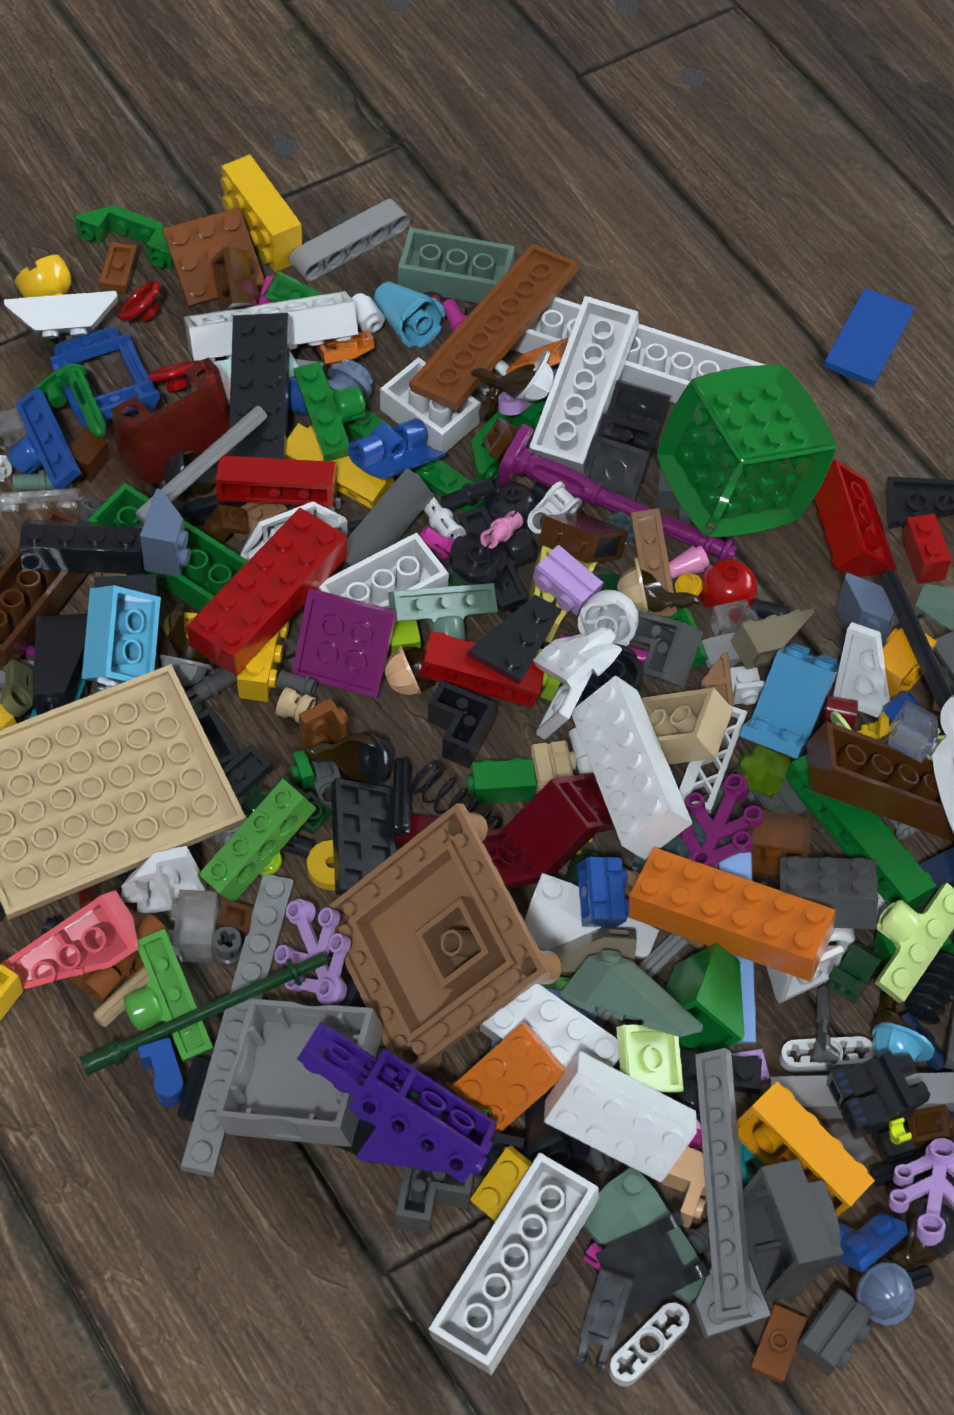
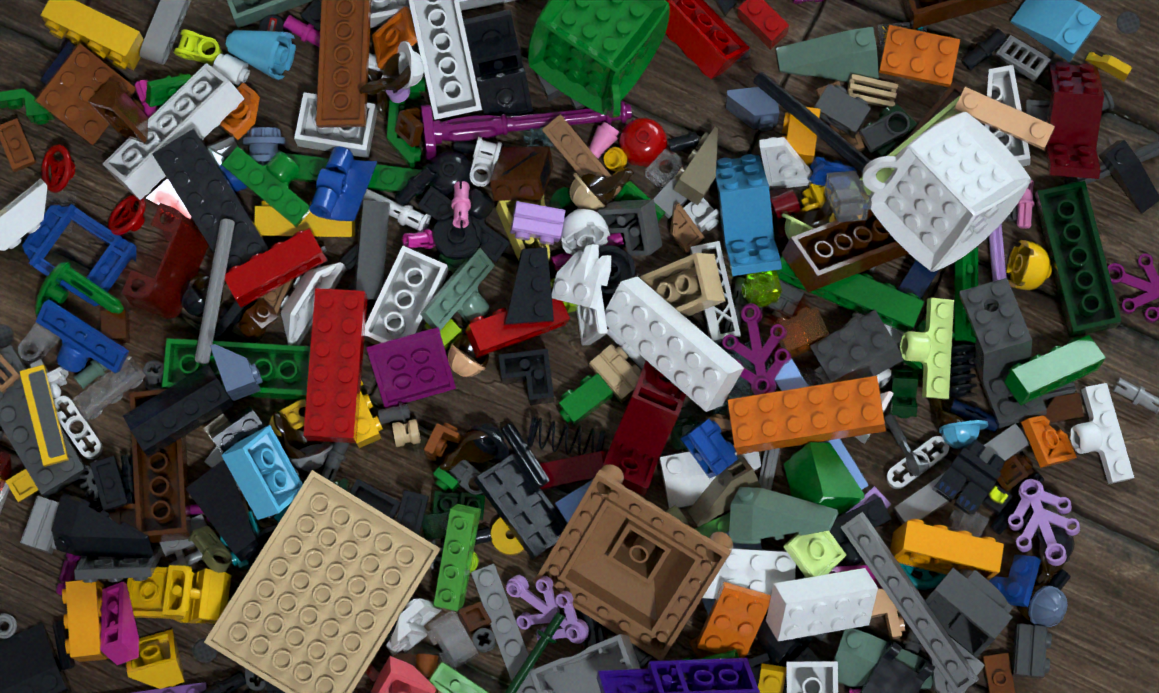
camera: 25 degrees left, 20 degrees up
(346, 278) = (193, 47): none -> neon yellow piece

